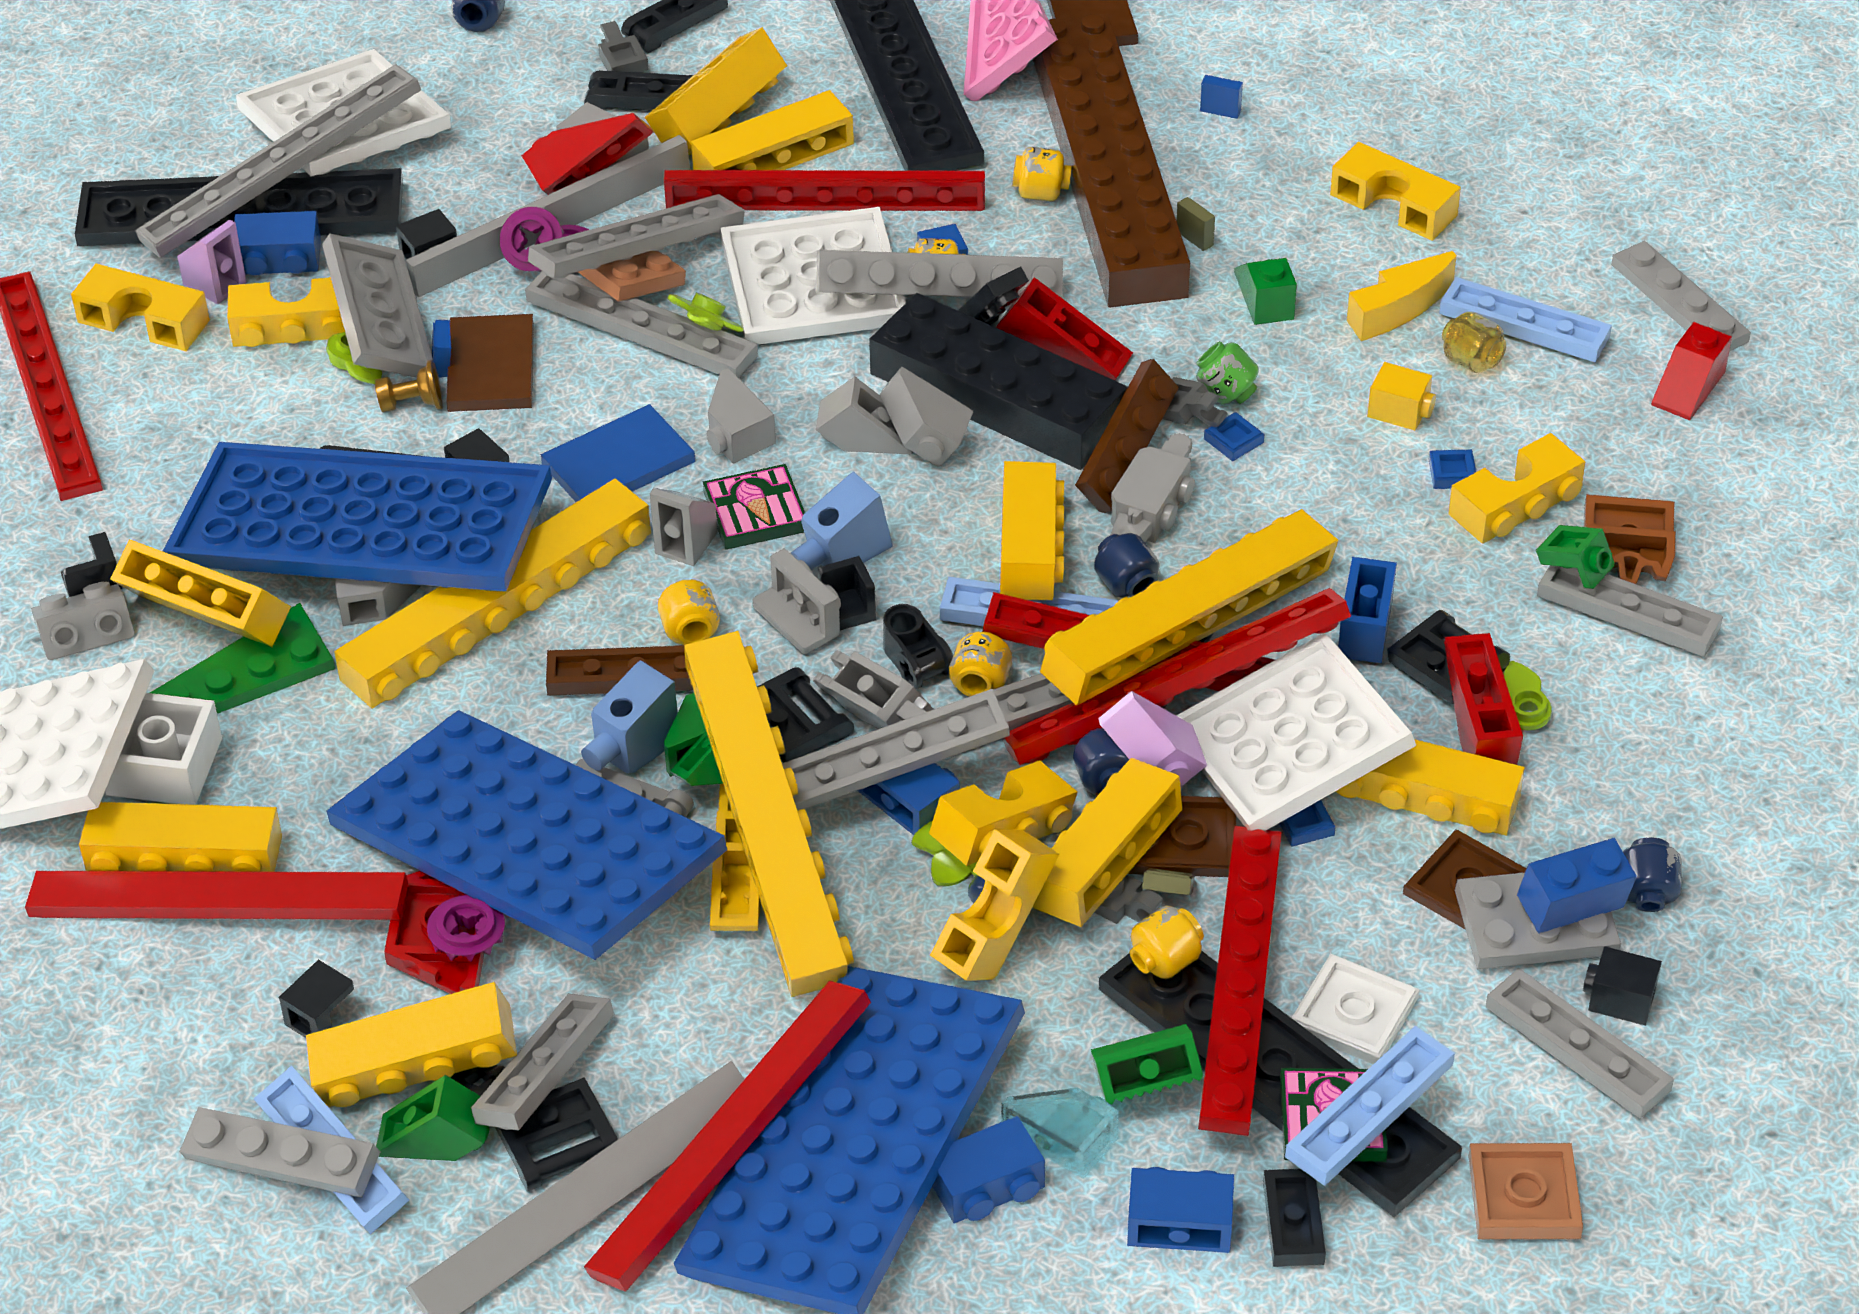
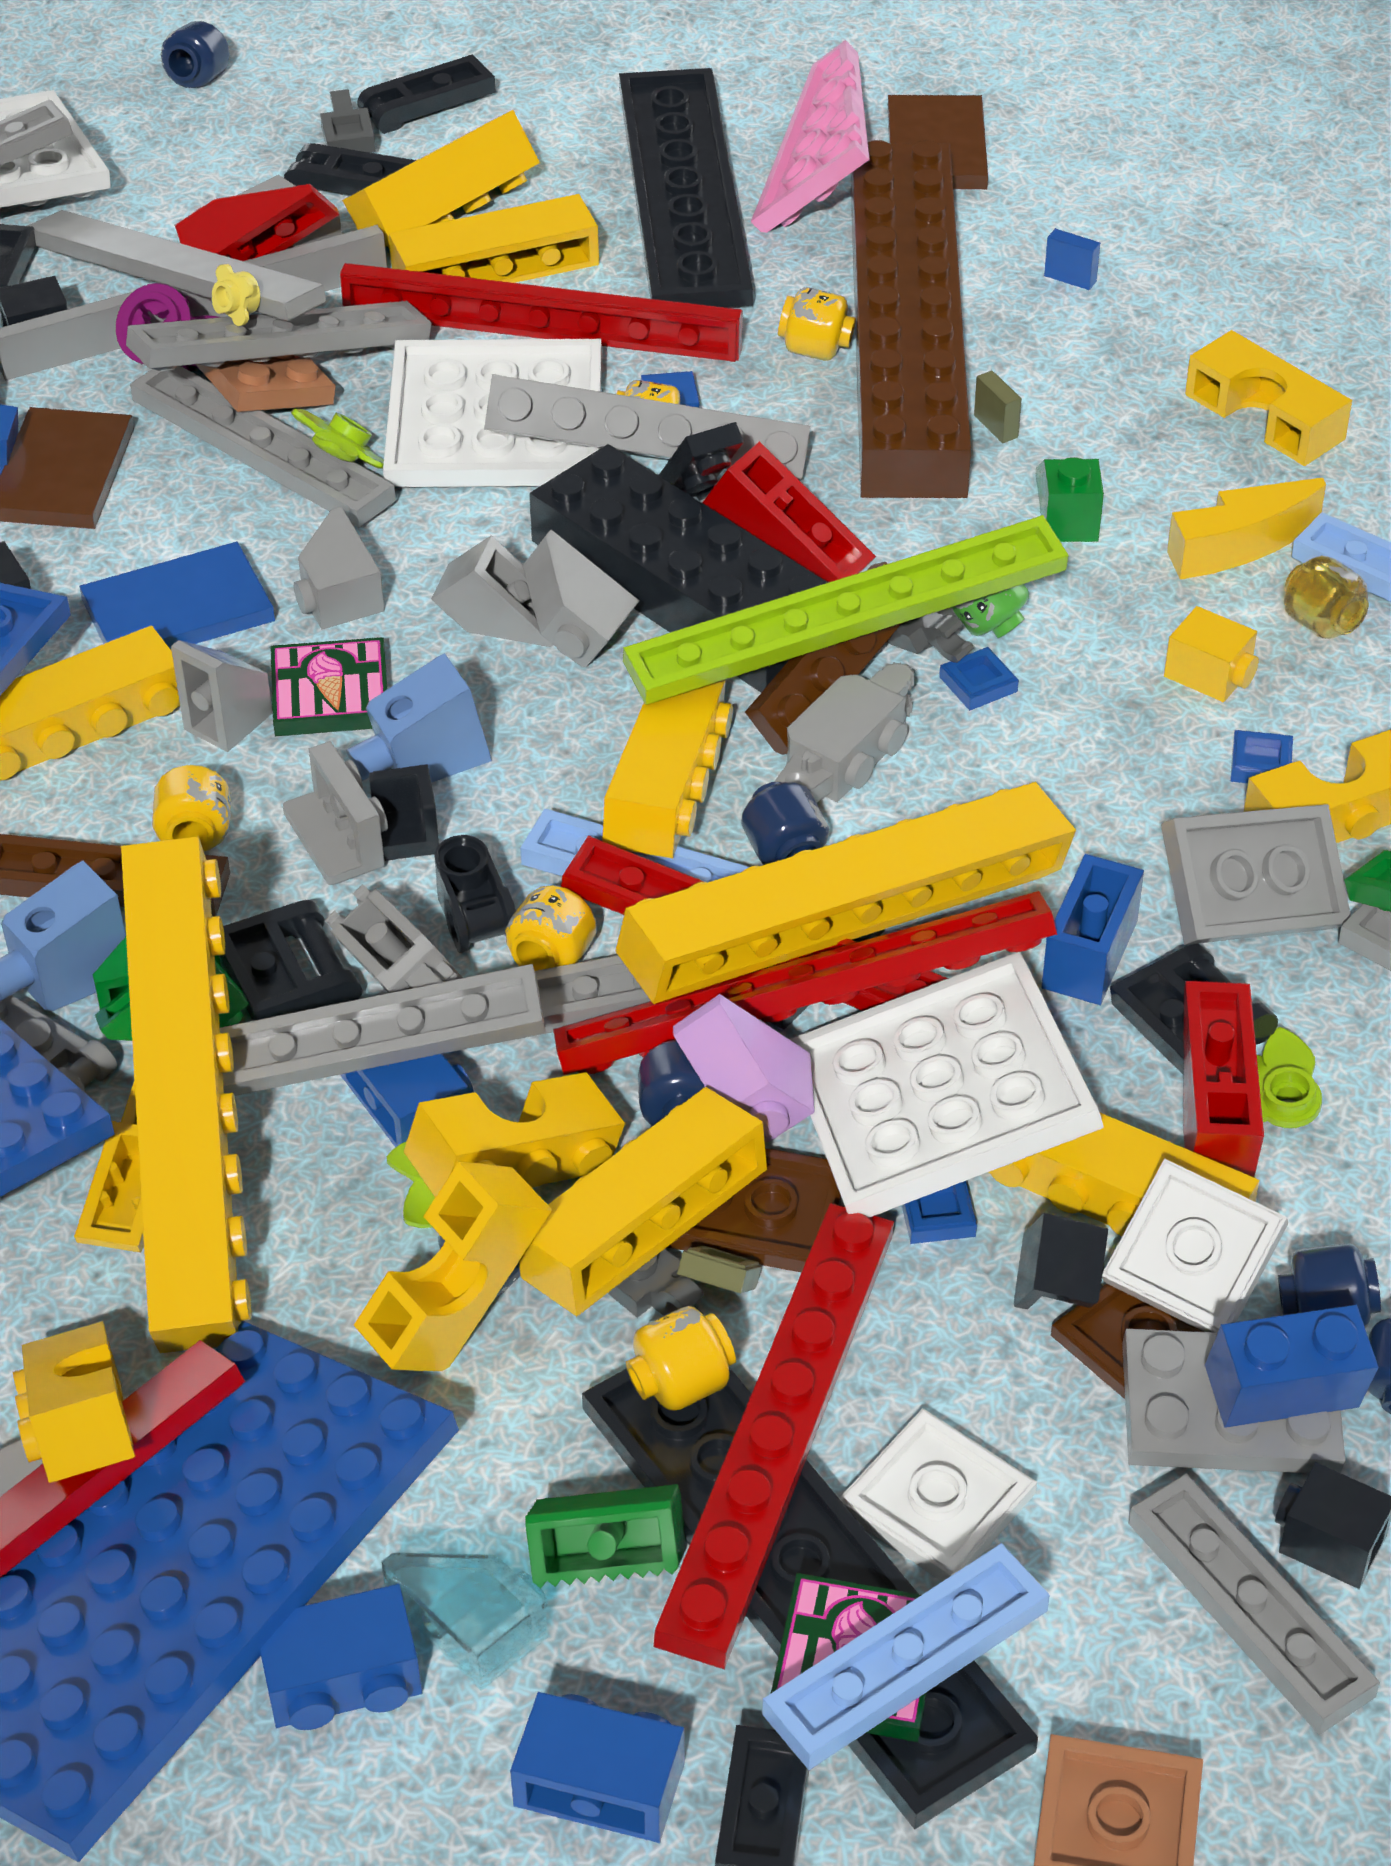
camera: 10 degrees right, 0 degrees up
(534, 188) = (170, 262): none -> light grey tile
(602, 210) = (235, 294): none -> light yellow plate
(759, 1033) = (72, 1403): none -> yellow arch
(1134, 399) = (843, 609): none -> lime plate
(1400, 841) = (1061, 1262): none -> black panel
(1473, 554) = (1255, 873): none -> light grey plate
(1491, 819) = (1194, 1248): none -> white tile
(1584, 826) = (1330, 1279): none -> dark blue head

